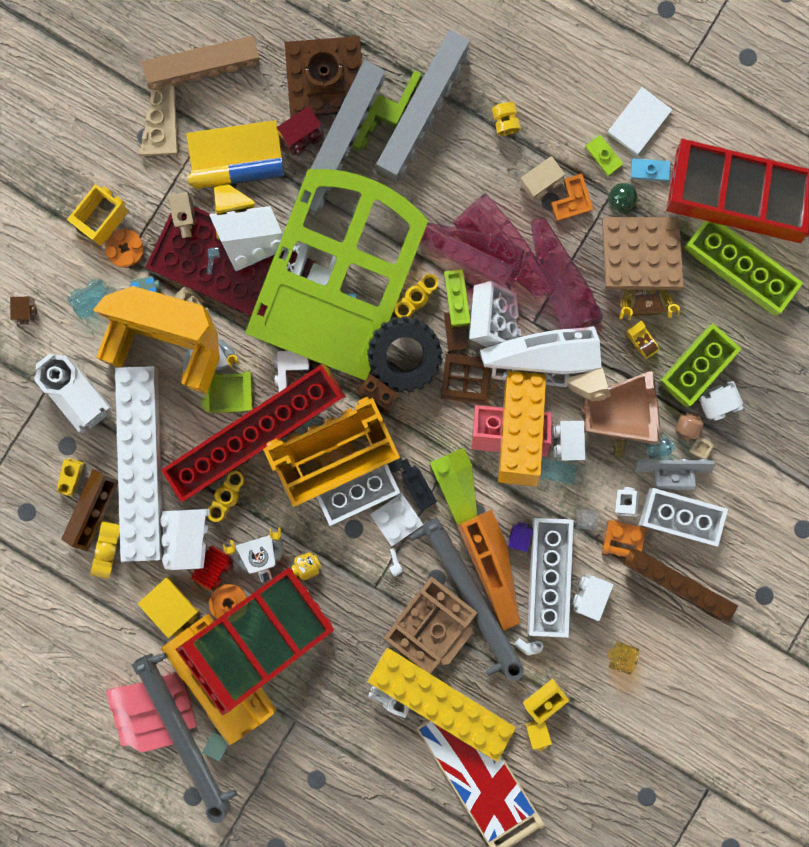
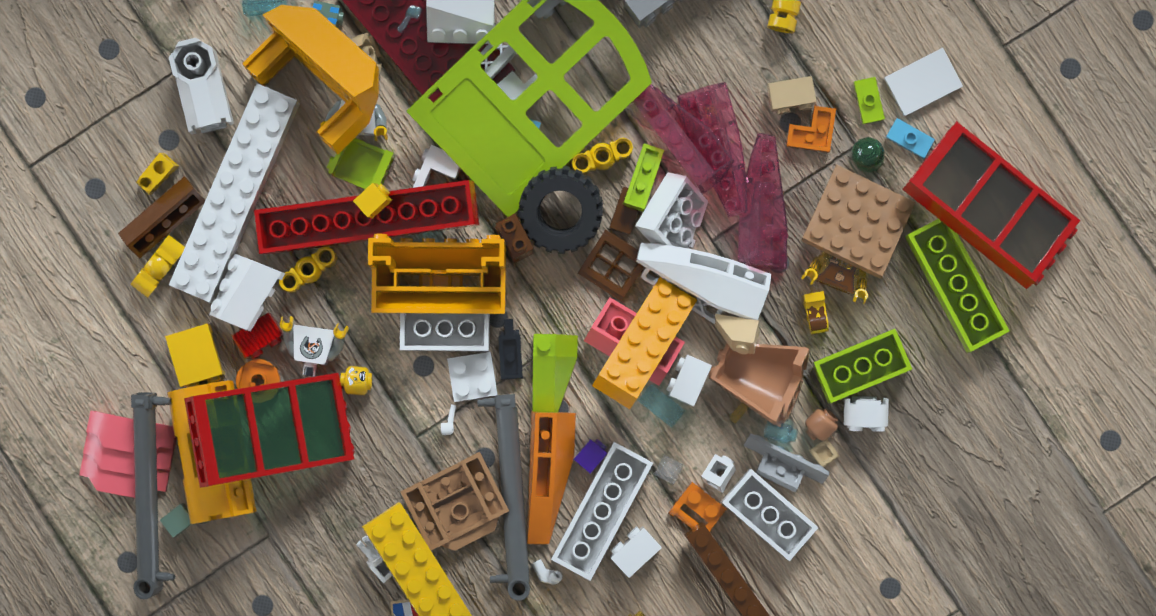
camera: 30 degrees right, 0 degrees up
(252, 416) = (373, 199): none -> yellow brick

